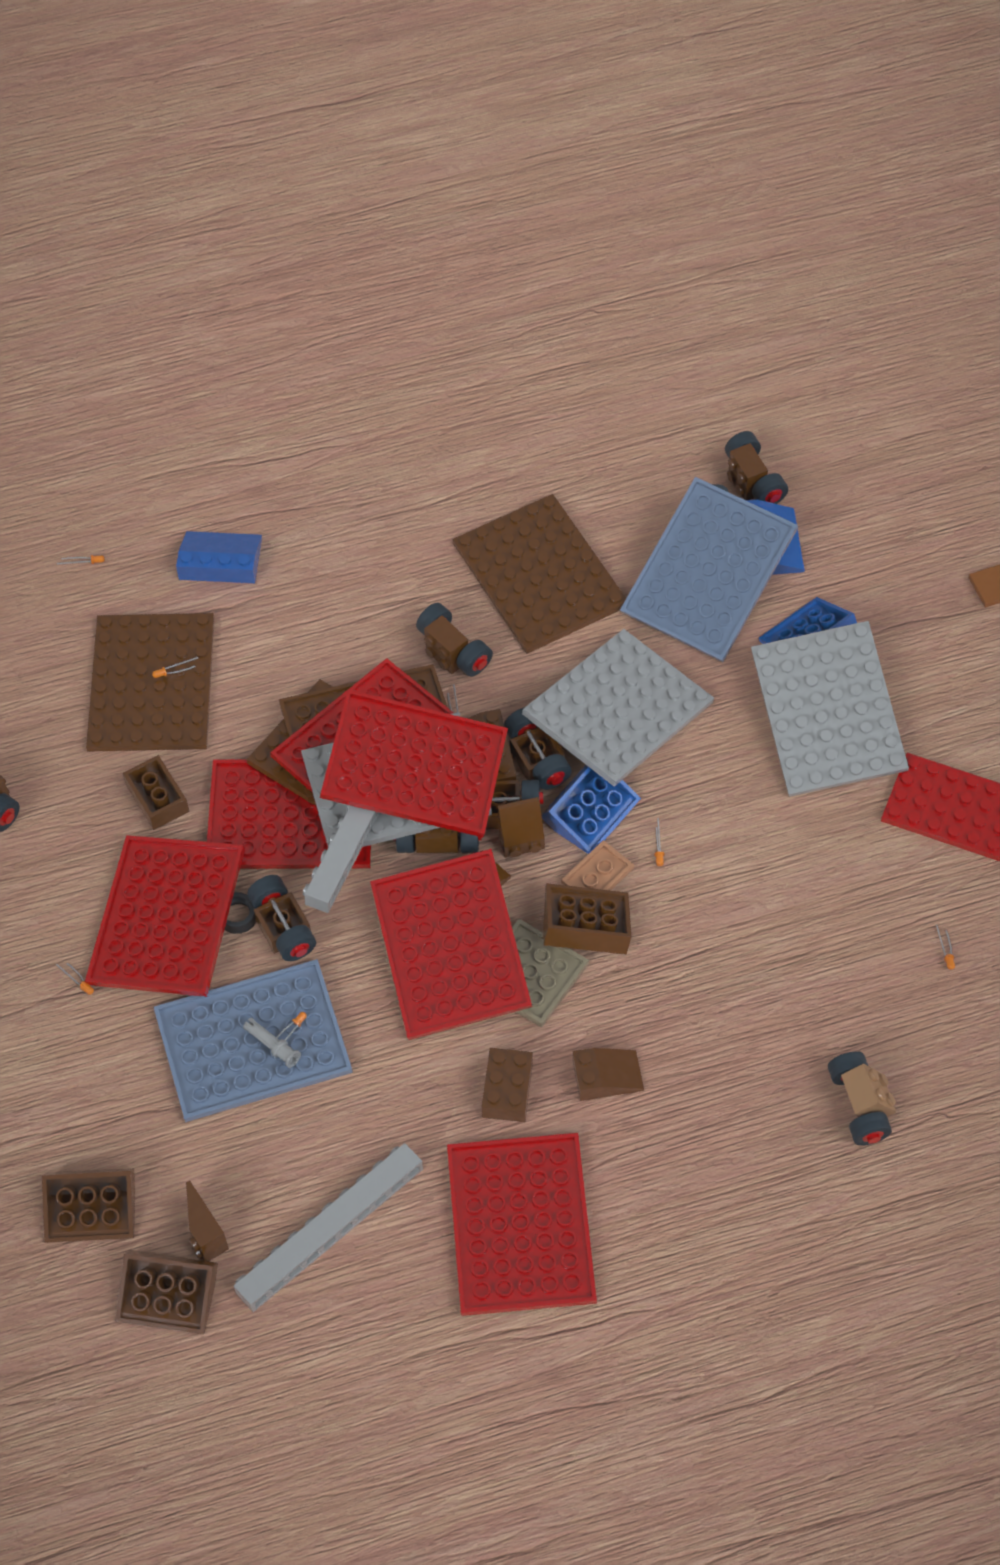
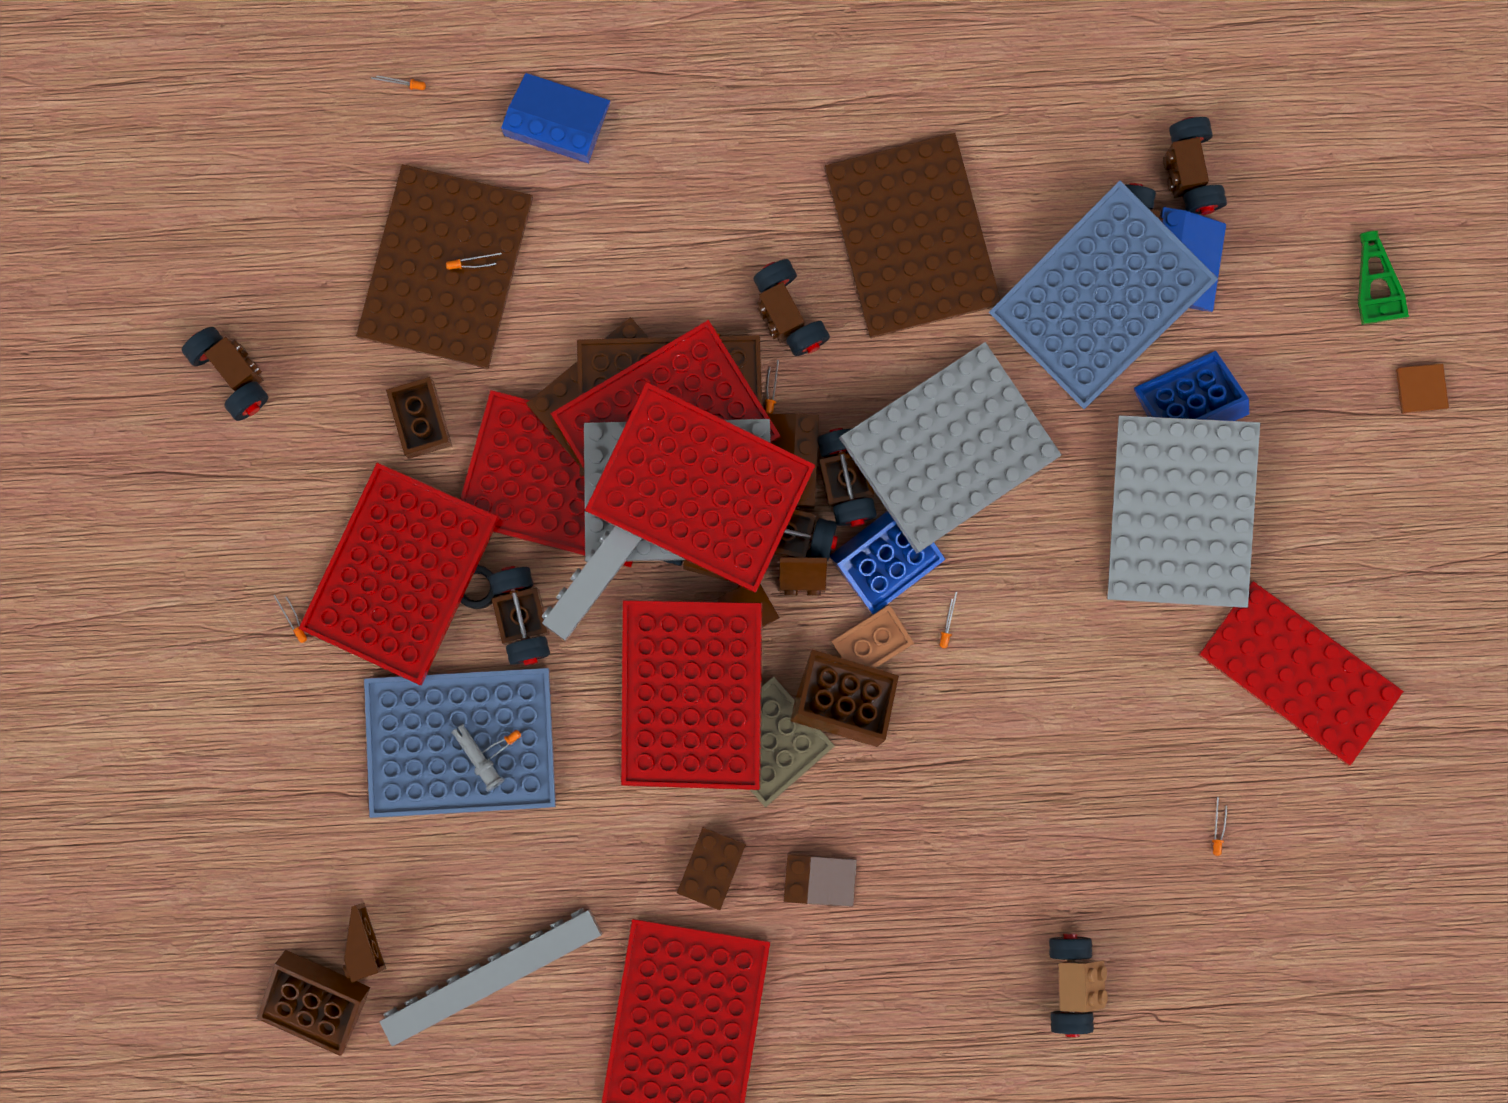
camera: 15 degrees right, 25 degrees up
(88, 1205) = (253, 886): reddish brown slope -> none
(940, 536) = (1379, 309): none -> green plate

